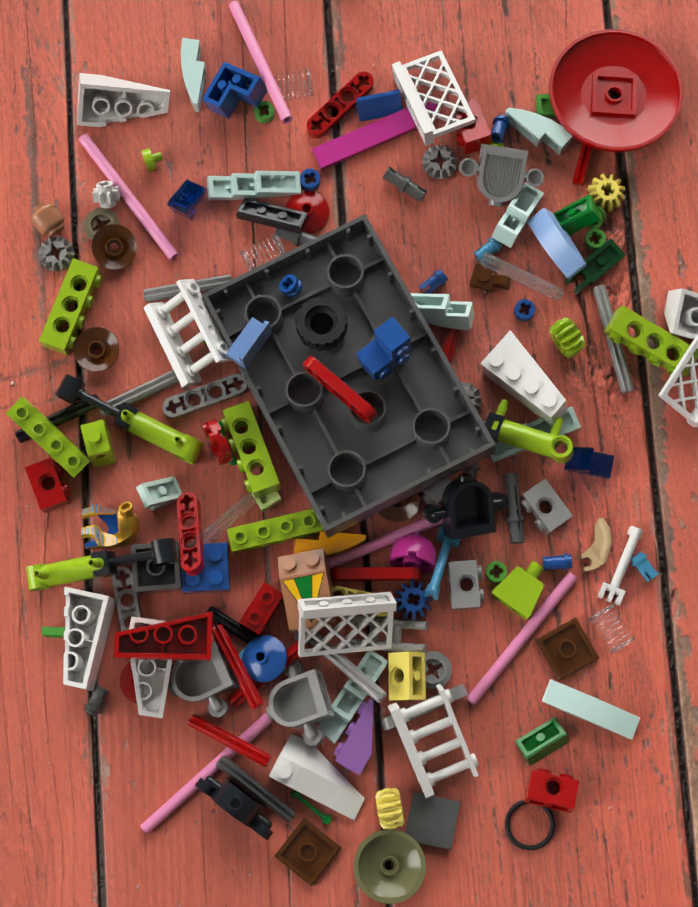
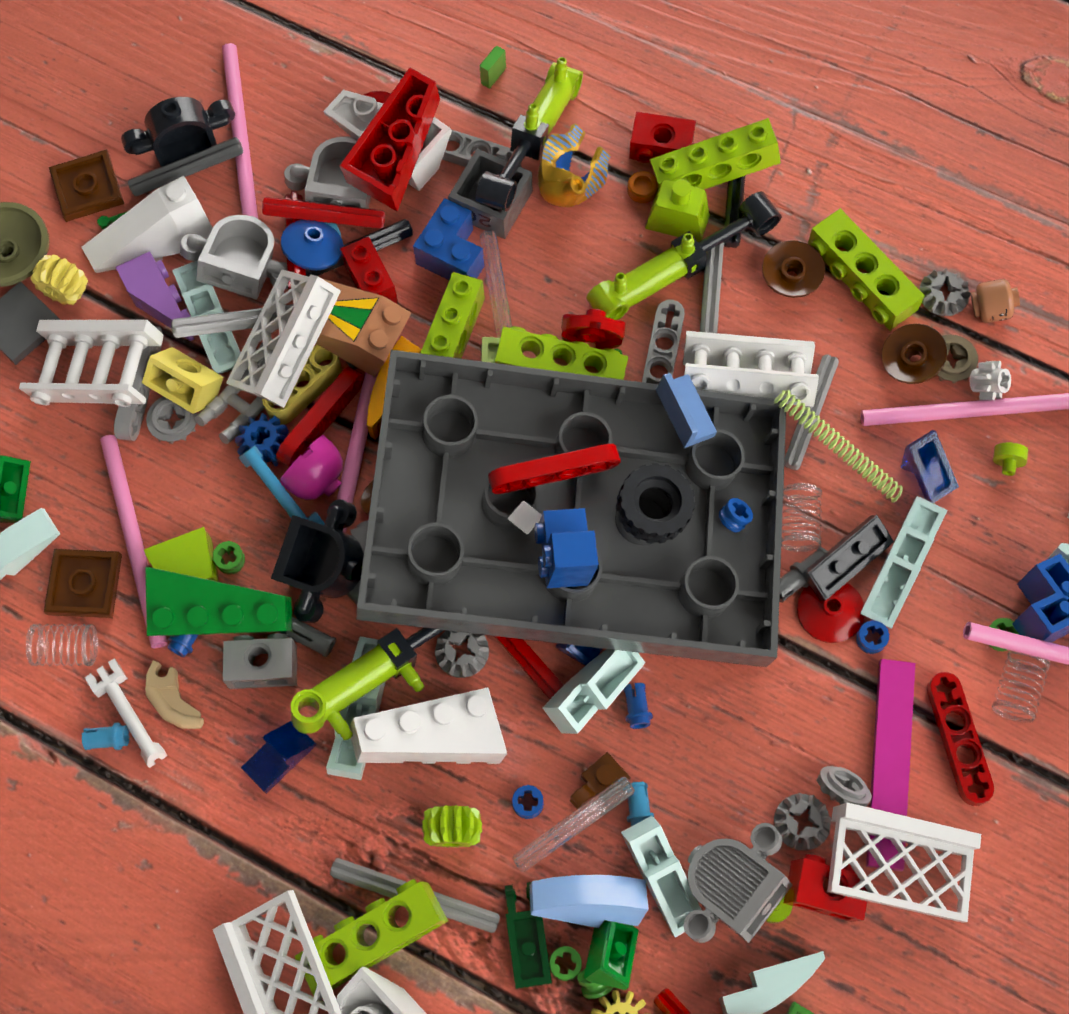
camera: 125 degrees right, 10 degrees down
(85, 636) = (468, 90): white wedge -> none
(88, 480) = (642, 187): none -> orange tile
(96, 701) = (388, 64): dark grey pin -> none
(159, 492) = (576, 242): light aqua slope -> none
(187, 534) = (507, 239): red beam -> none
(210, 243) = (887, 488): none -> yellowish green piece
(229, 740) = (252, 166): red axle -> none
(377, 390) = (525, 517): none -> white sticker
(378, 105) = (930, 786): blue slope -> none
(404, 184) = (795, 752): dark grey pin -> none
(406, 140) = (844, 786): none -> light grey gear
(465, 599) = (224, 495): light grey brick -> none
(500, 125) = (809, 939): blue pin -> none
(537, 546) = (201, 606): none -> green wedge

